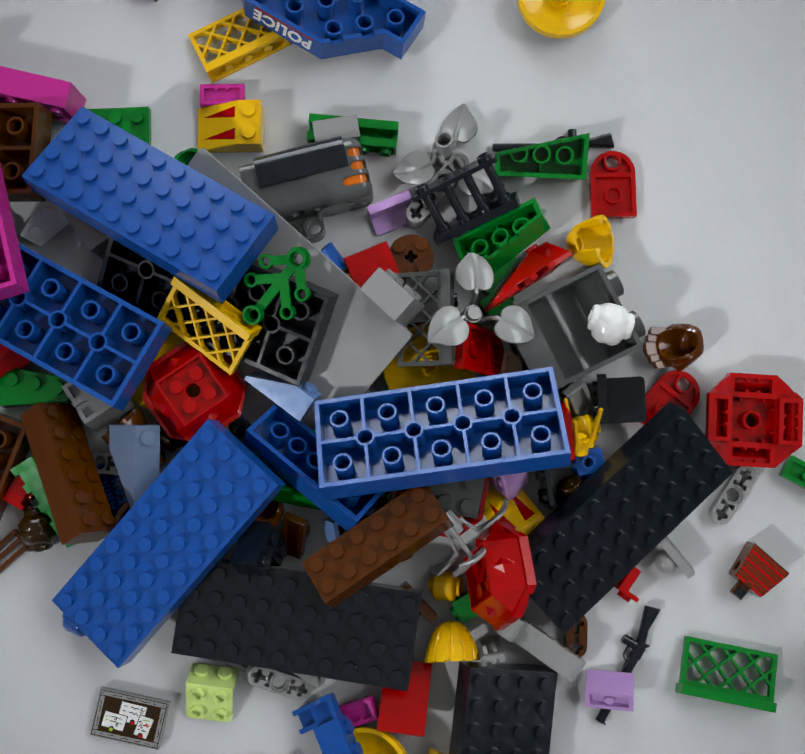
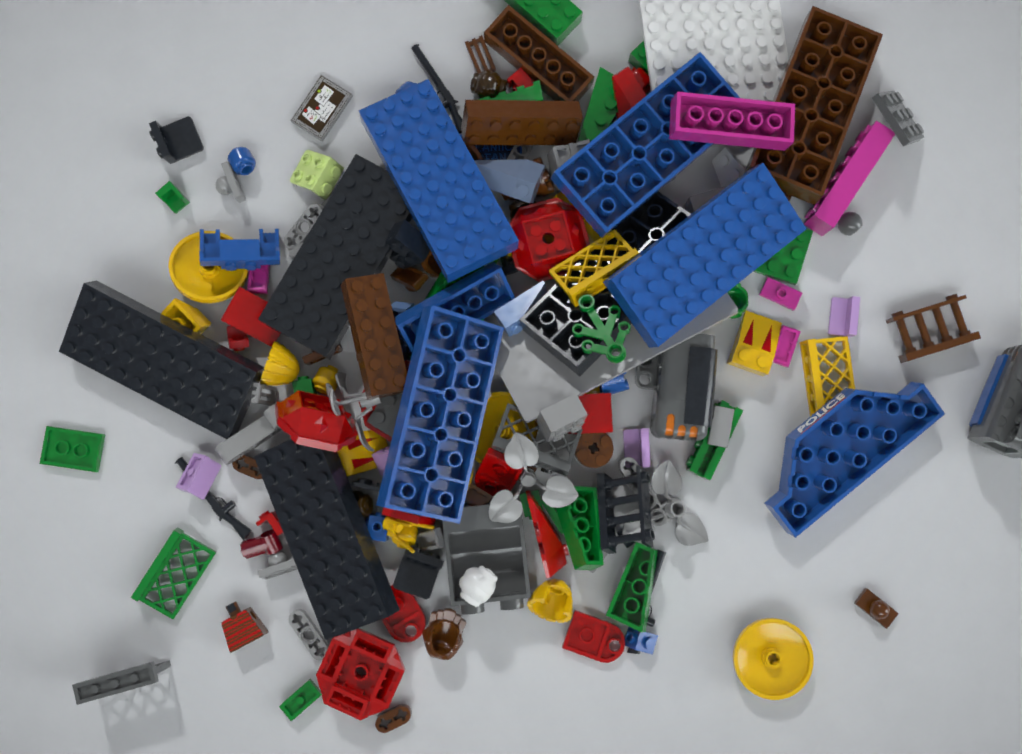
camera: 110 degrees right, 0 degrees up
(61, 70) = (849, 223): none -> dark grey piece
(68, 571) = (448, 98): none -> black piece
(166, 120) = (780, 293): none -> dark pink plate
(167, 44) = (844, 316): none -> lavender panel
(438, 708) = (237, 339): none -> red bracket
(598, 136) = (640, 641): none -> blue bracket
(653, 582) = (266, 543): none -> dark red piece
(786, 364) = (396, 722): none -> reddish brown beam

